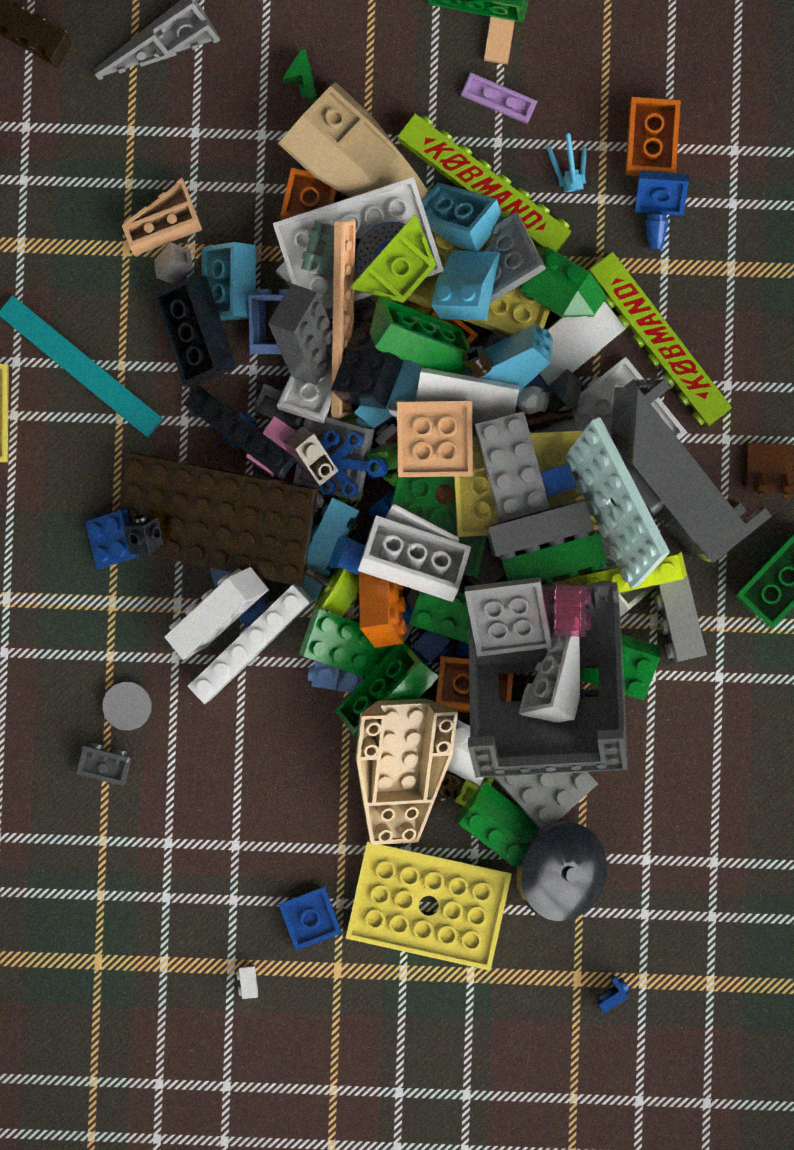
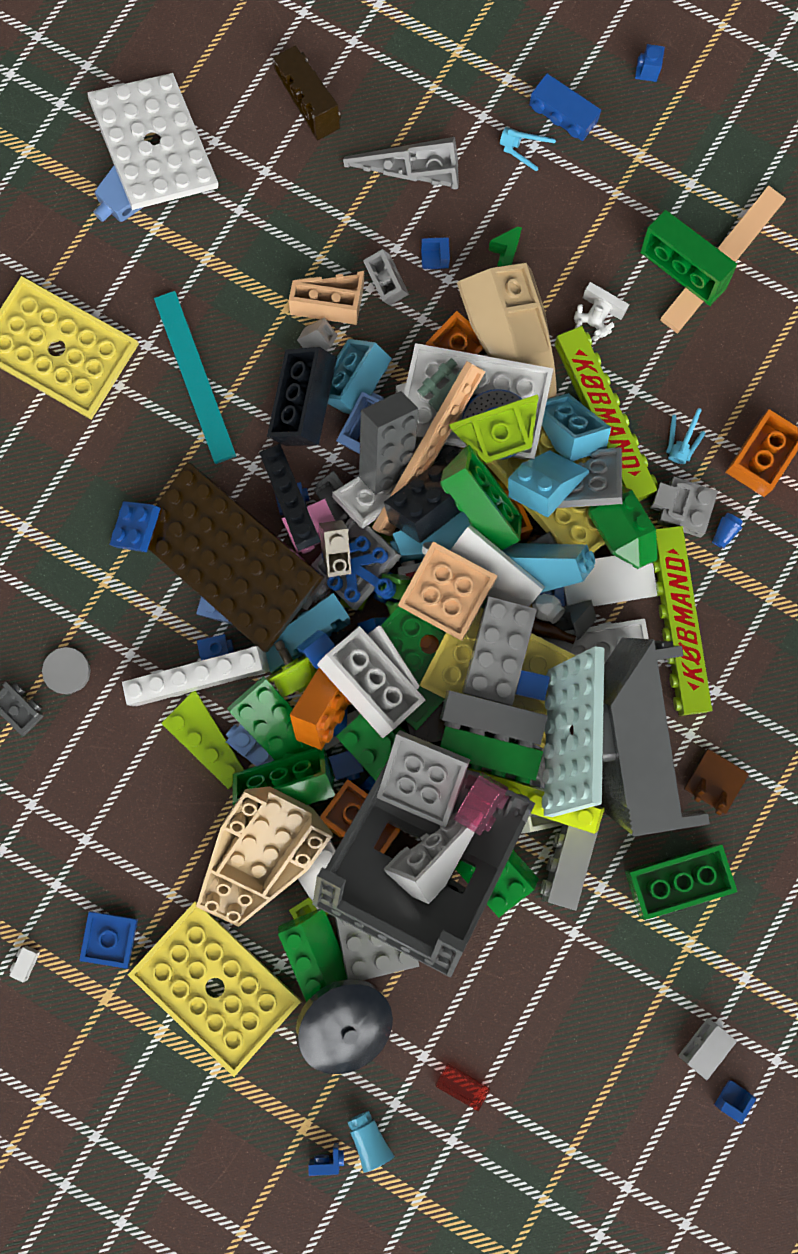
camera: 20 degrees right, 5 degrees down
(143, 534) = (159, 534): black brick -> none
(205, 170) = (386, 277): none -> light grey brick
(216, 612) = (180, 633): white brick -> none
(236, 118) = (435, 253): none -> blue panel
(283, 693) = (202, 737): none -> lime wing
(422, 87) = (603, 304): none -> white piece
(452, 786) = (293, 896): dark brown wheel -> none
(477, 361) = (520, 546): dark brown wheel -> none
(499, 98) = (655, 355): lavender tile -> none
(604, 229) = (684, 505): none -> light grey piece
(639, 956) = (369, 1142): none -> medium azure plant
(661, 193) = (750, 501): blue plate -> none
(694, 865) = (462, 1087): none -> clear red tile

